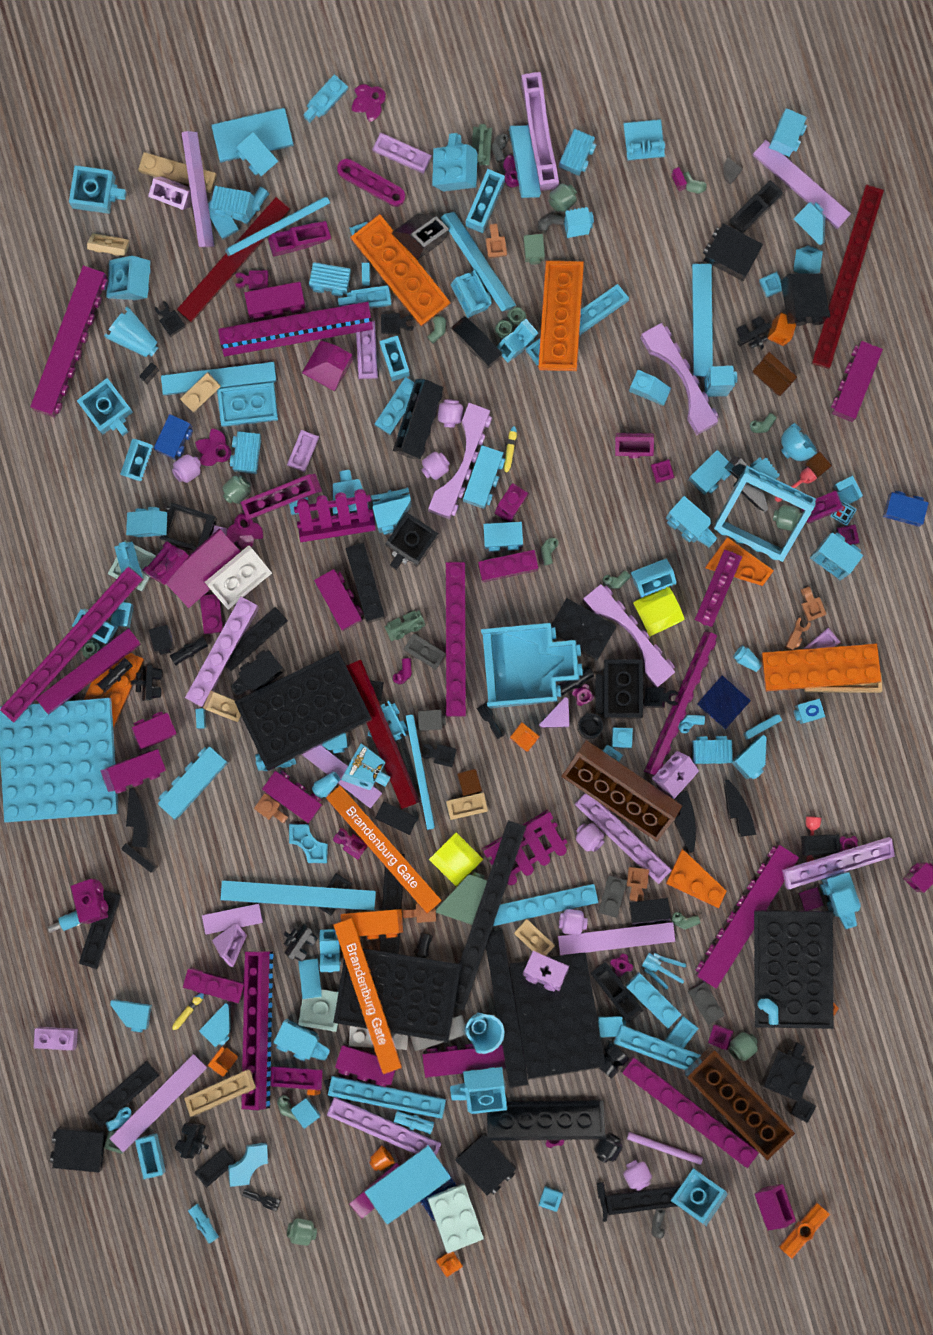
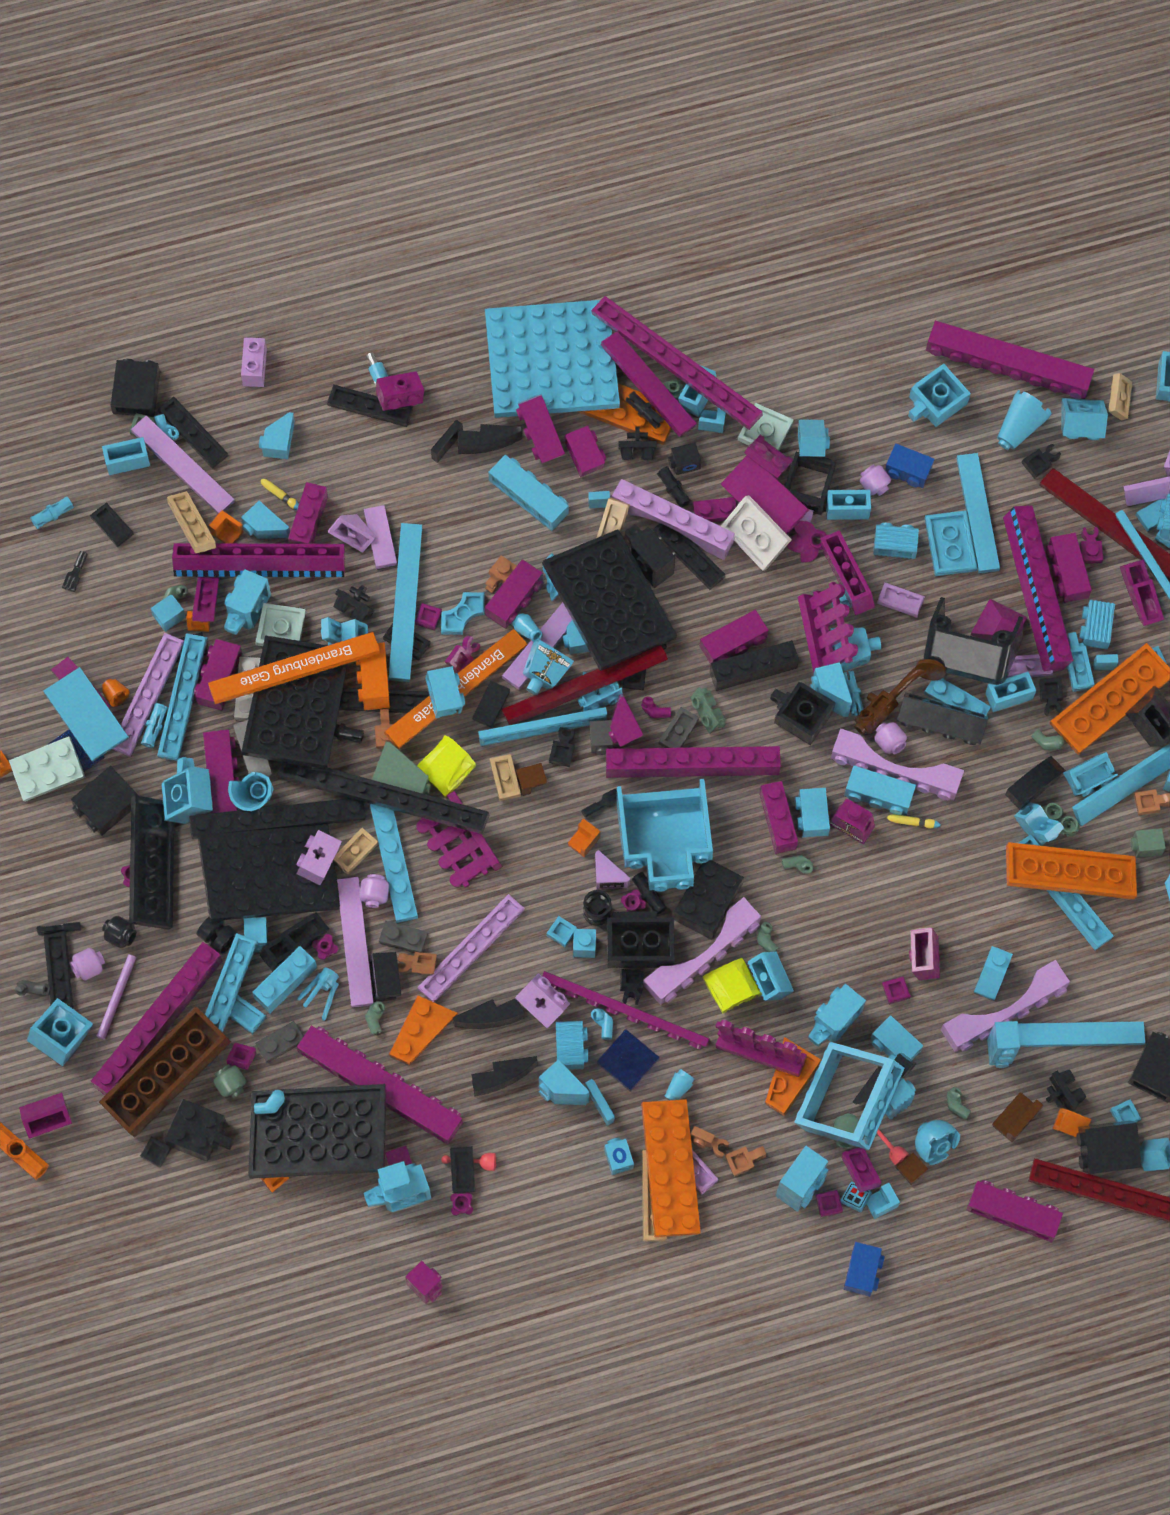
camera: 90 degrees right, 15 degrees down
(127, 557) = (772, 421): medium azure hinge -> none
(136, 460) = (882, 427): medium azure brick -> none
(147, 375) = (979, 440): black tile -> none
(194, 1142) = (140, 500): black hips -> none
(200, 392) = (961, 492): tan plate -> none
(211, 447) = (899, 507): magenta plate -> none
(212, 493) = (848, 504): none -> medium azure brick
(236, 489) = (854, 531): sand green head -> none
(242, 1170) = (106, 549): medium azure tile -> none
(301, 1232) = (38, 610): sand green head -> none
(310, 978) = (312, 613): medium azure tile -> none
(311, 874) = (428, 616): none -> magenta tile
(365, 393) = (970, 655): none -> black windscreen
(391, 859) = (444, 691): none -> medium azure hinge
(402, 468) = (885, 702): none -> reddish brown piece
(423, 698) = (623, 723): none -> magenta slope
(450, 413) = (952, 753): lavender head -> none
(550, 1198) = (64, 872): medium azure tile -> none
(590, 837) = (470, 909): lavender head -> none
(621, 791) = (523, 939): reddish brown brick -> none
(838, 863) = (441, 1187): lavender tile -> none

